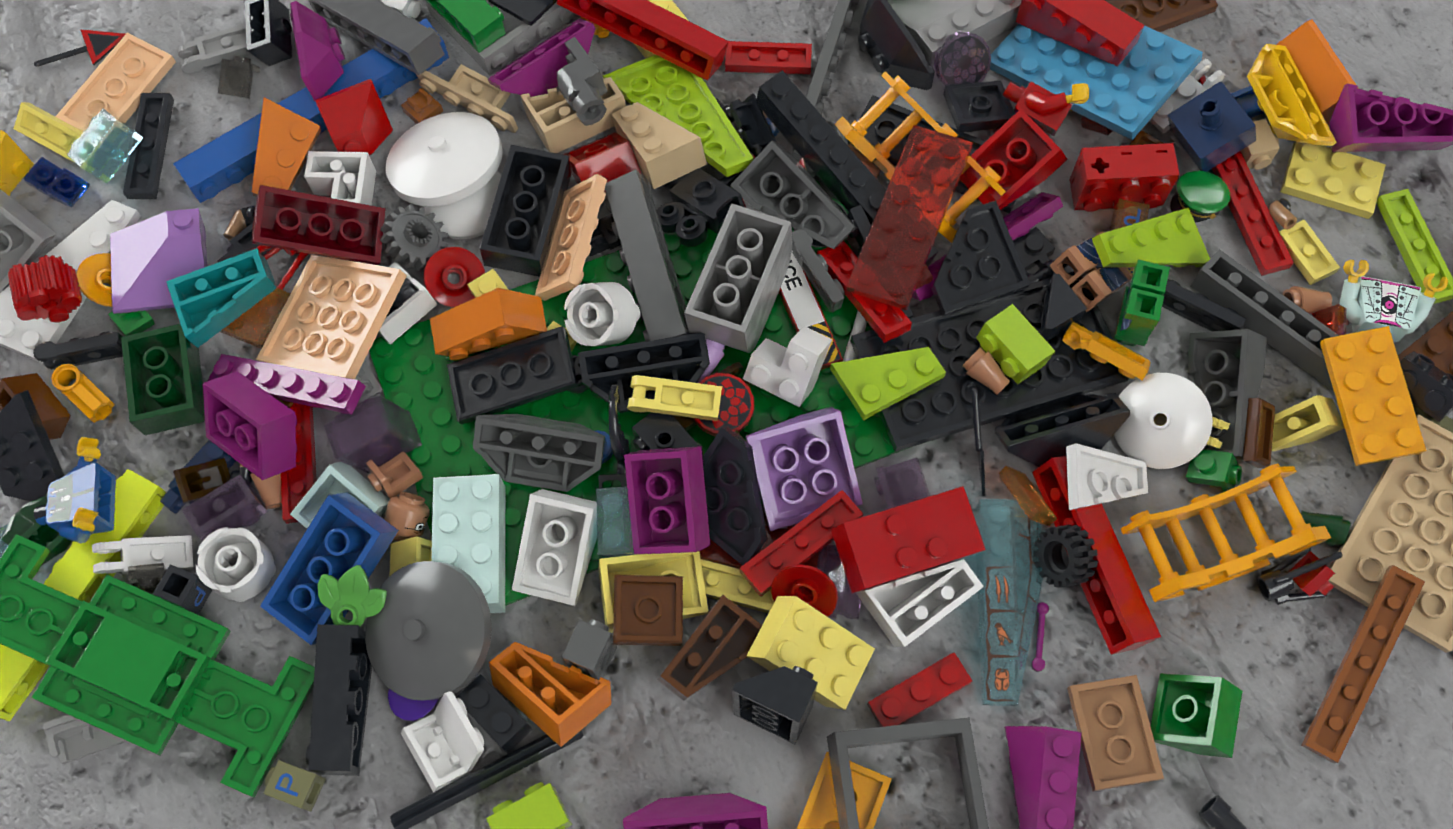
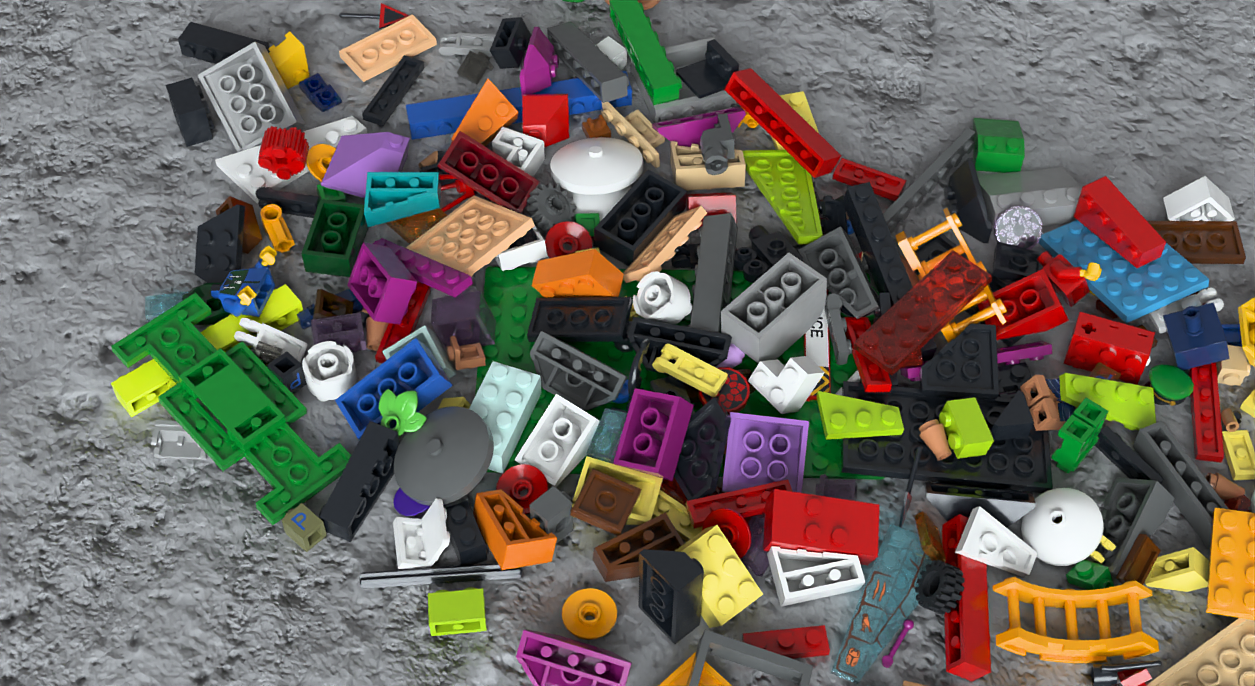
camera: 20 degrees right, 15 degrees down
(46, 129) = (333, 62): light yellow plate -> none
(104, 145) = (364, 78): clear light blue brick -> none
(407, 514) = (464, 384): nougat head -> none
(467, 238) = (588, 221): none -> green plate
(524, 613) = (523, 478): none -> red dish
(659, 145) = (758, 206): tan wedge -> none
(679, 736) = (589, 603): none -> light orange dish
(1106, 350) = (1039, 460): light orange hinge -> none
(1335, 524) = (1168, 653): dark green cone -> none

